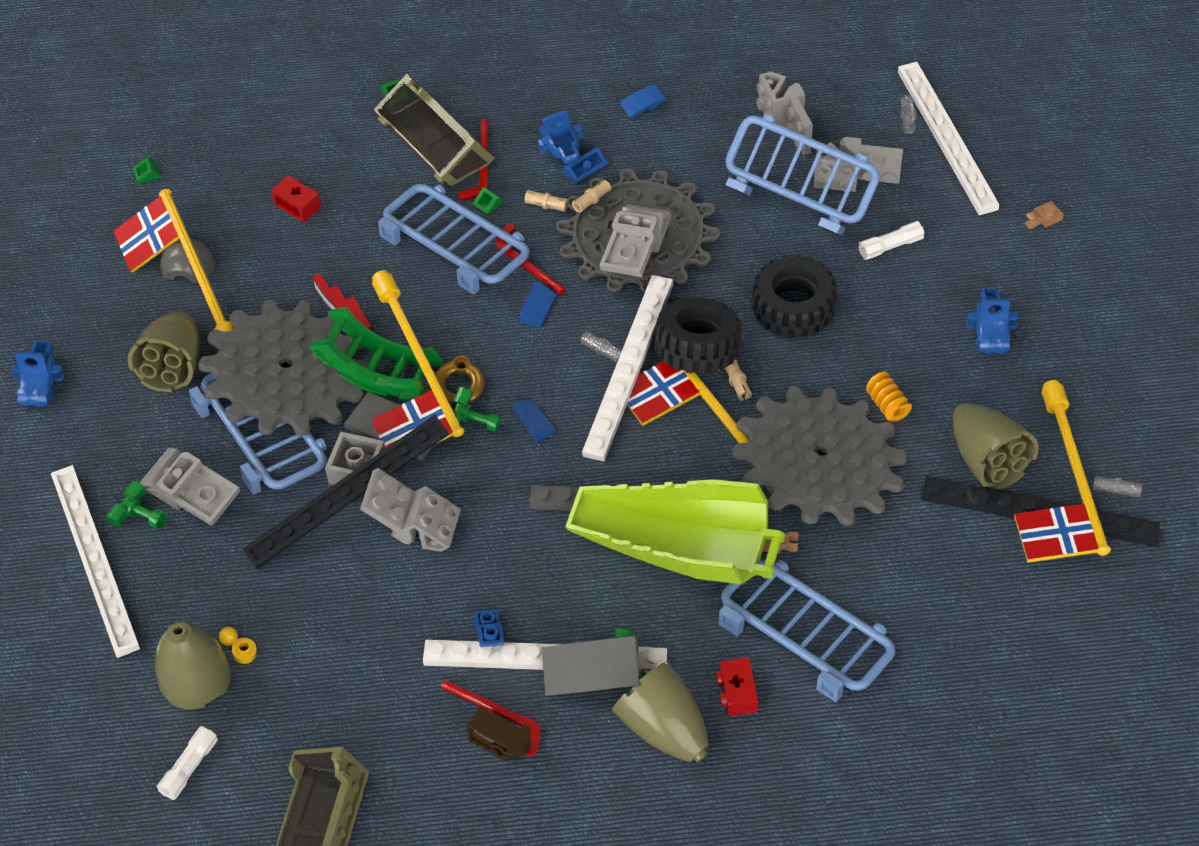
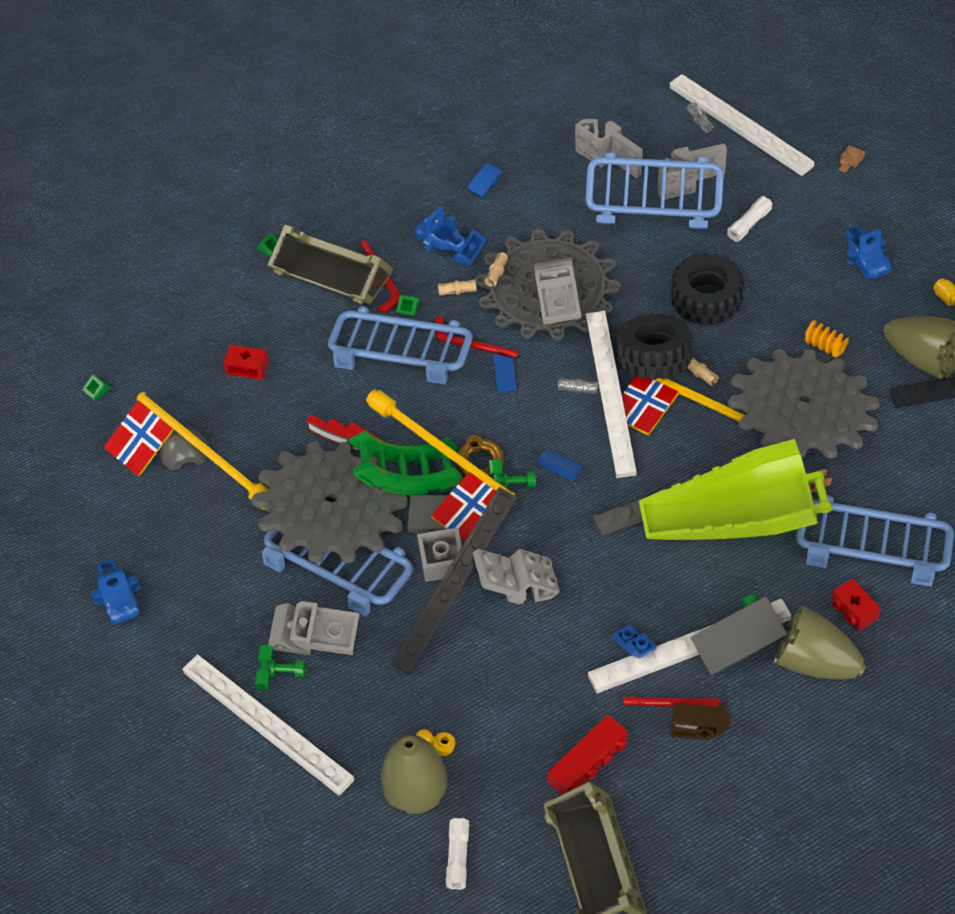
camera: 25 degrees left, 0 degrees up
(170, 340) = (222, 517): olive cylinder -> none
(371, 722) = (588, 756): none -> red brick

